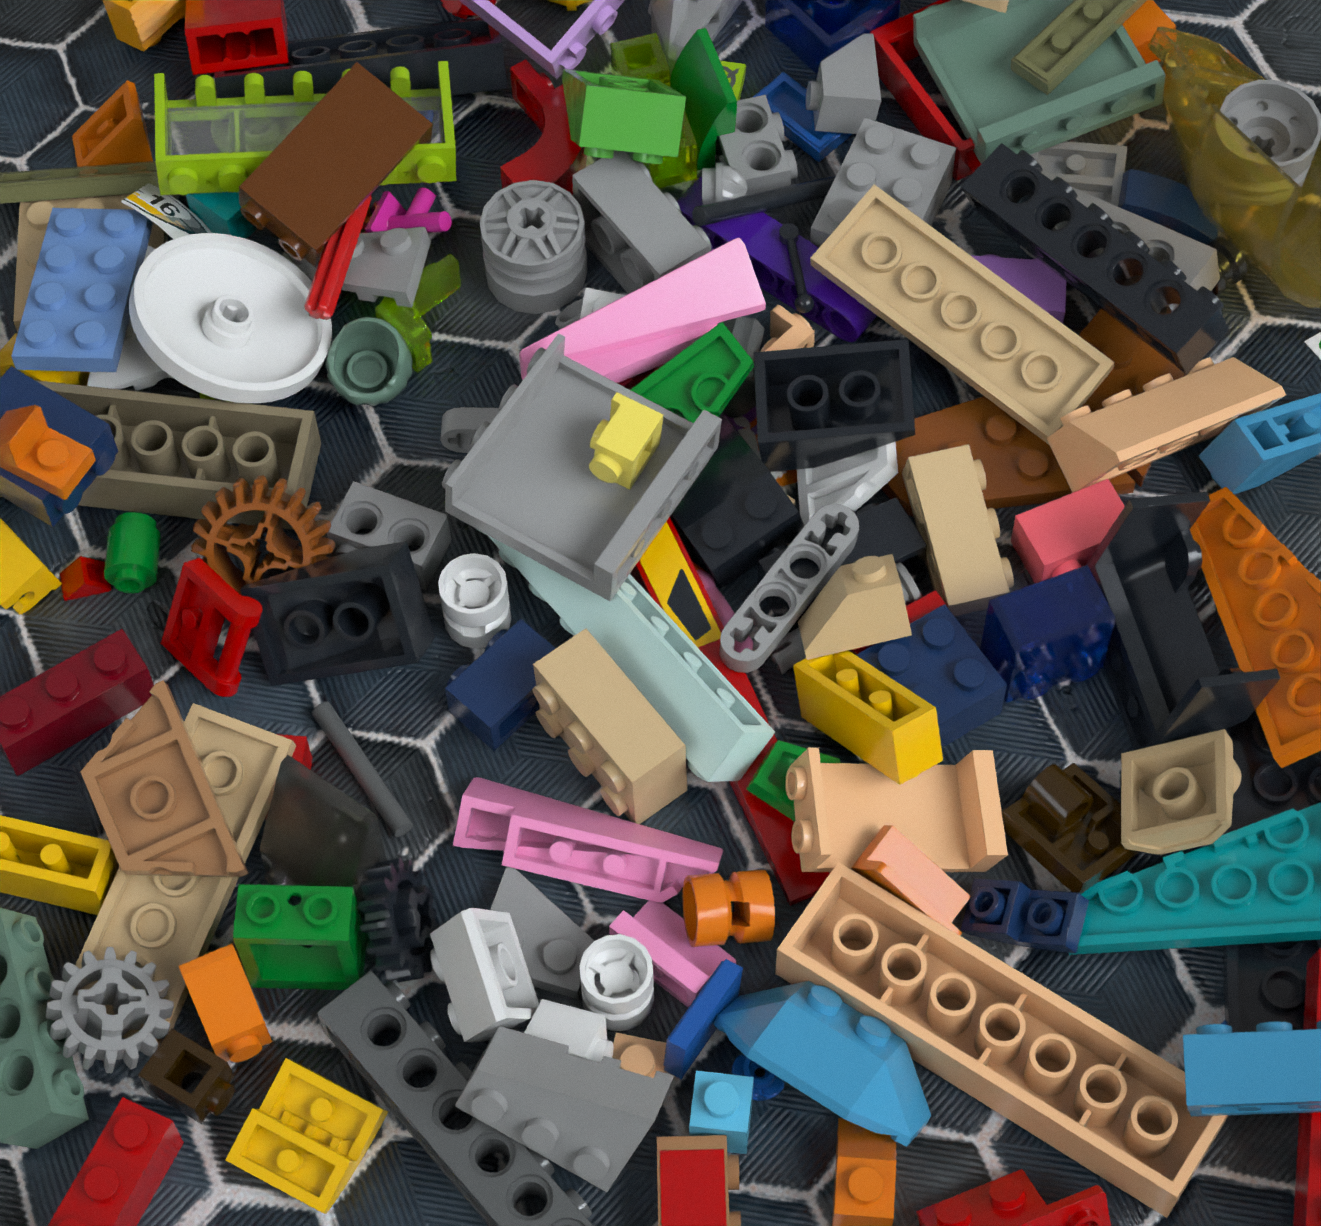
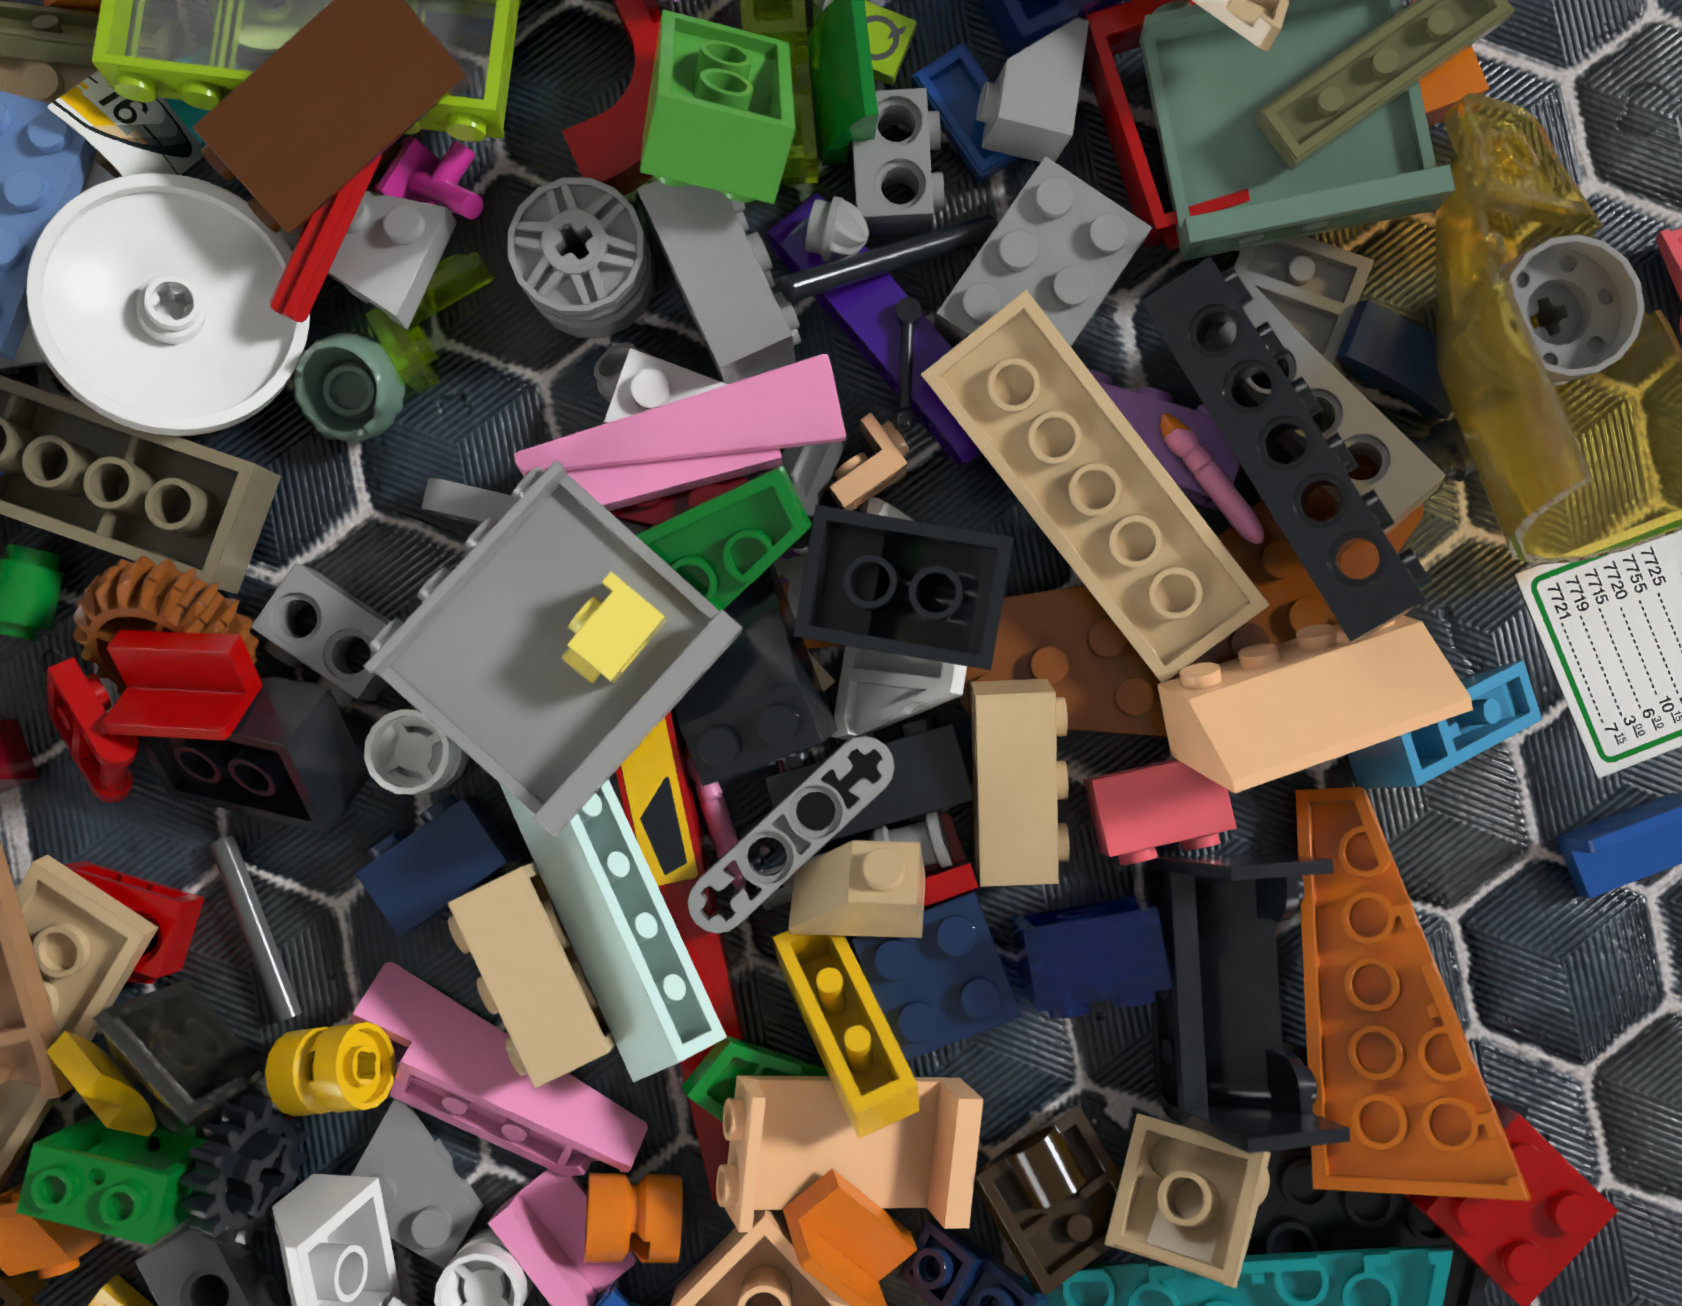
camera: 10 degrees right, 25 degrees up
(269, 854) = (102, 1085): none -> yellow slope
(291, 549) = (181, 684): none -> red panel
(447, 839) = (331, 1069): none -> yellow wheel
(1021, 277) = (1185, 444): none -> bright pink piece

